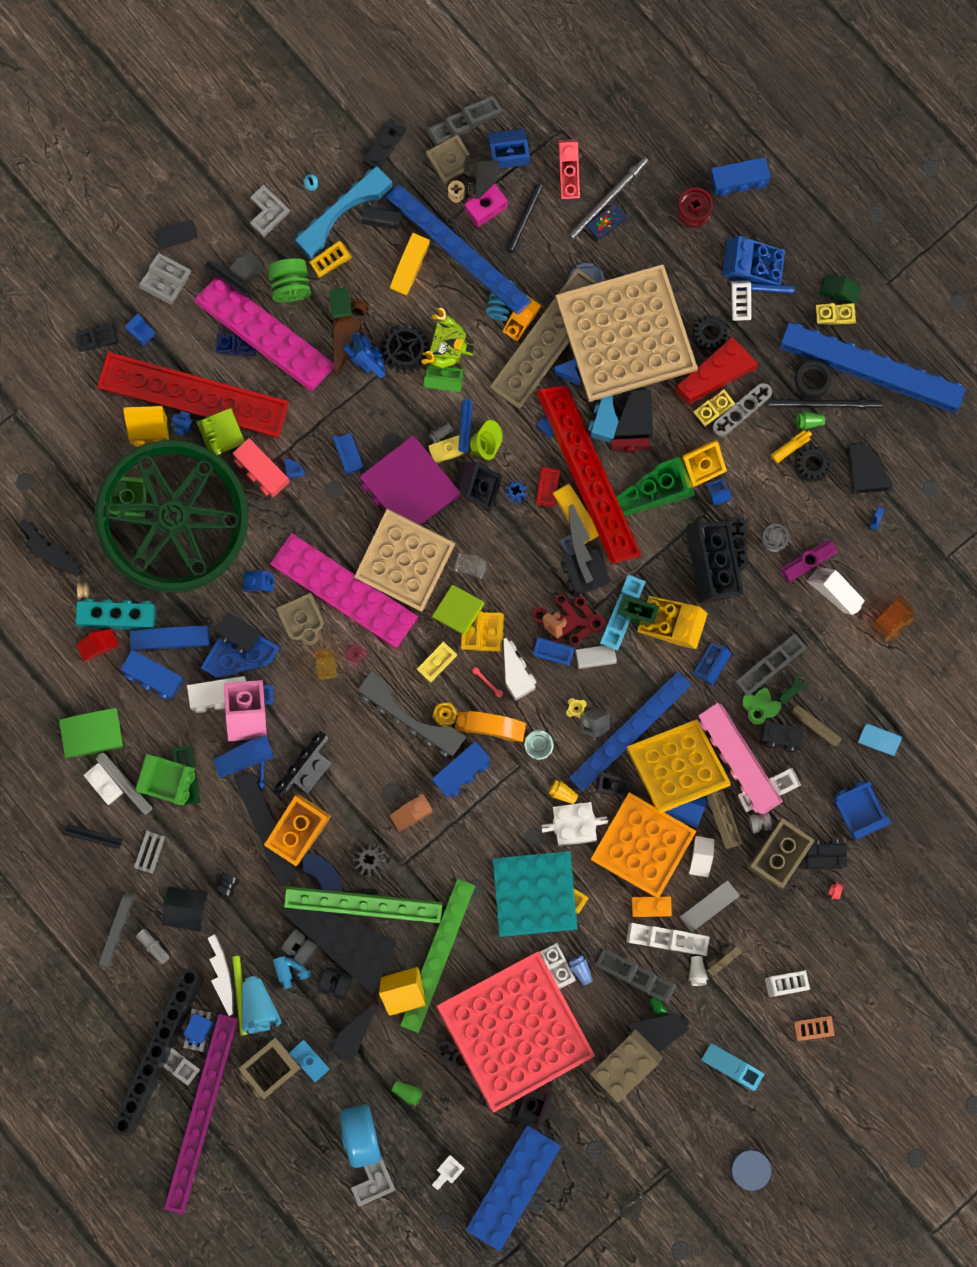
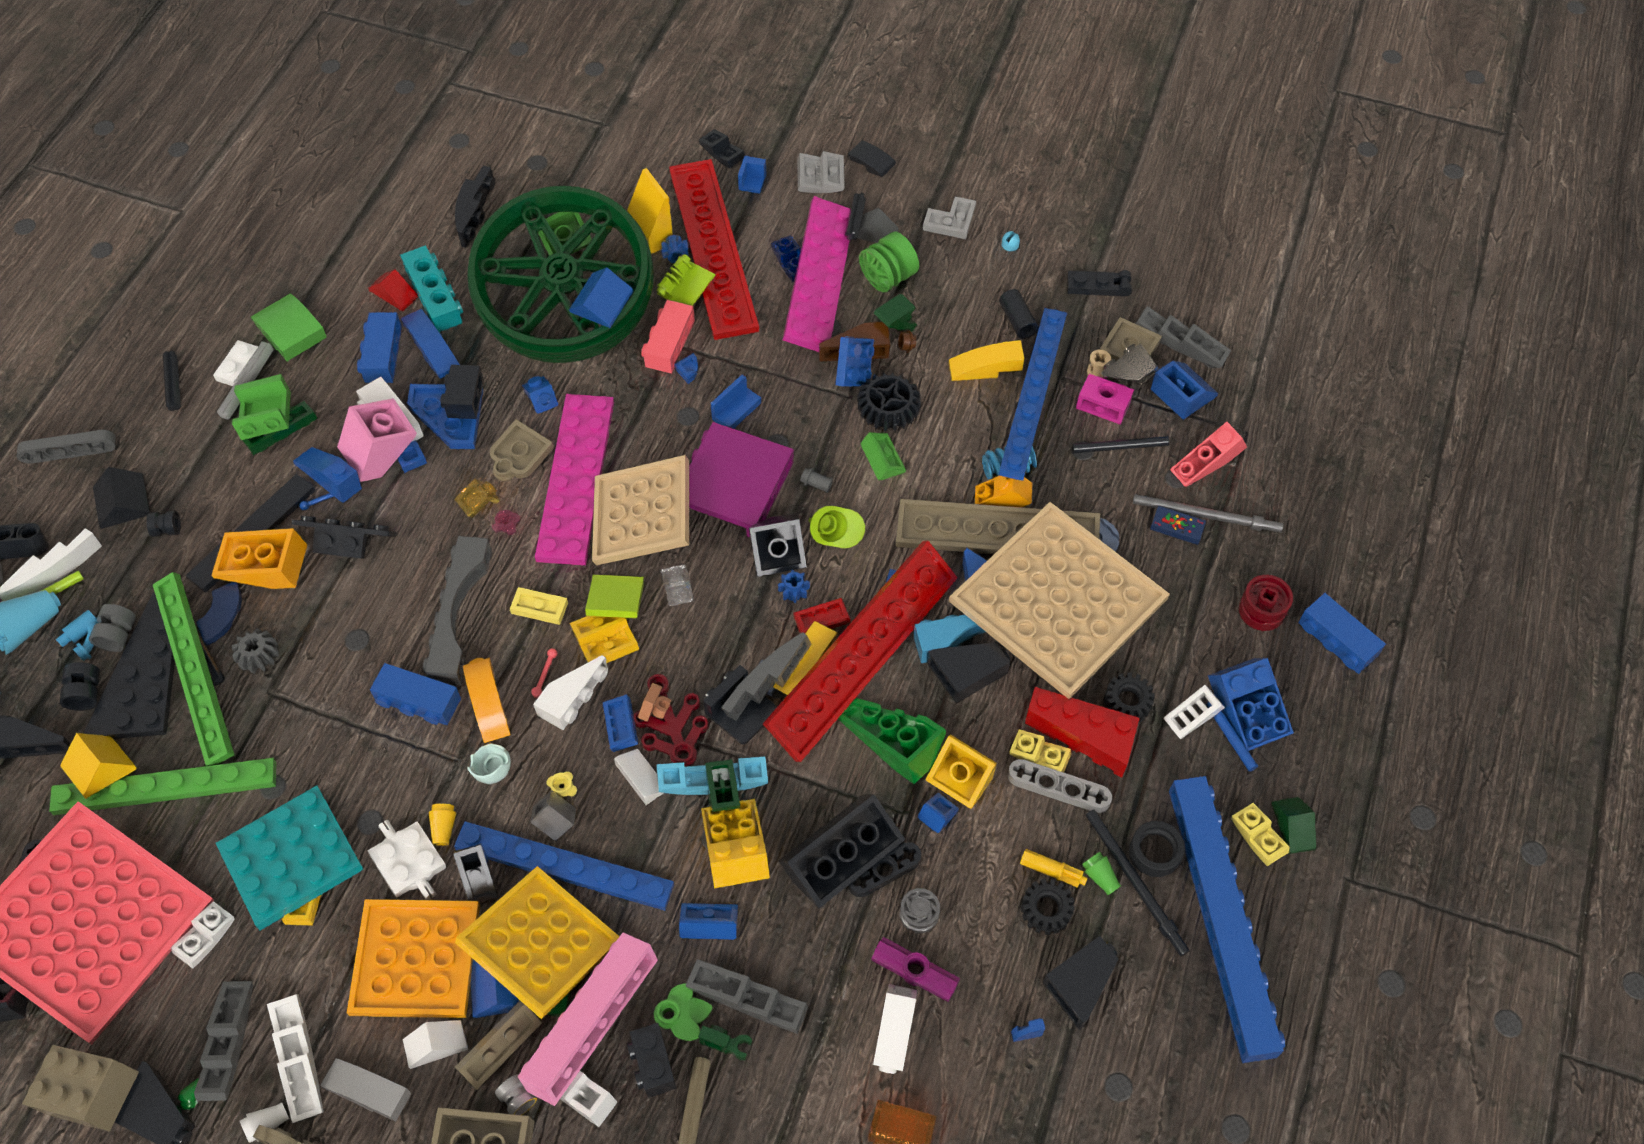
camera: 65 degrees right, 20 degrees down
(82, 591) = (443, 251): tan bush -> none
(152, 946) = (61, 488): light grey axle -> none
(154, 836) = (175, 434): light grey tile -> none
(220, 499) = (602, 298): none -> blue slope
(340, 260) = (956, 294): yellow slope -> none
(370, 188) = (956, 268): dark azure arch -> none
(411, 813) = (339, 669): nougat slope -> none
(446, 450) = (801, 497): light yellow plate -> none
(446, 708) = (477, 637): yellow plate -> none
(447, 342) = (922, 436): torso -> none
(465, 425) = (840, 497): blue axle -> none
(581, 969) = (207, 965): medium blue cone -> none
(630, 445) = (929, 678): dark red plate -> none
(651, 907) = (332, 1012): light orange plate -> none

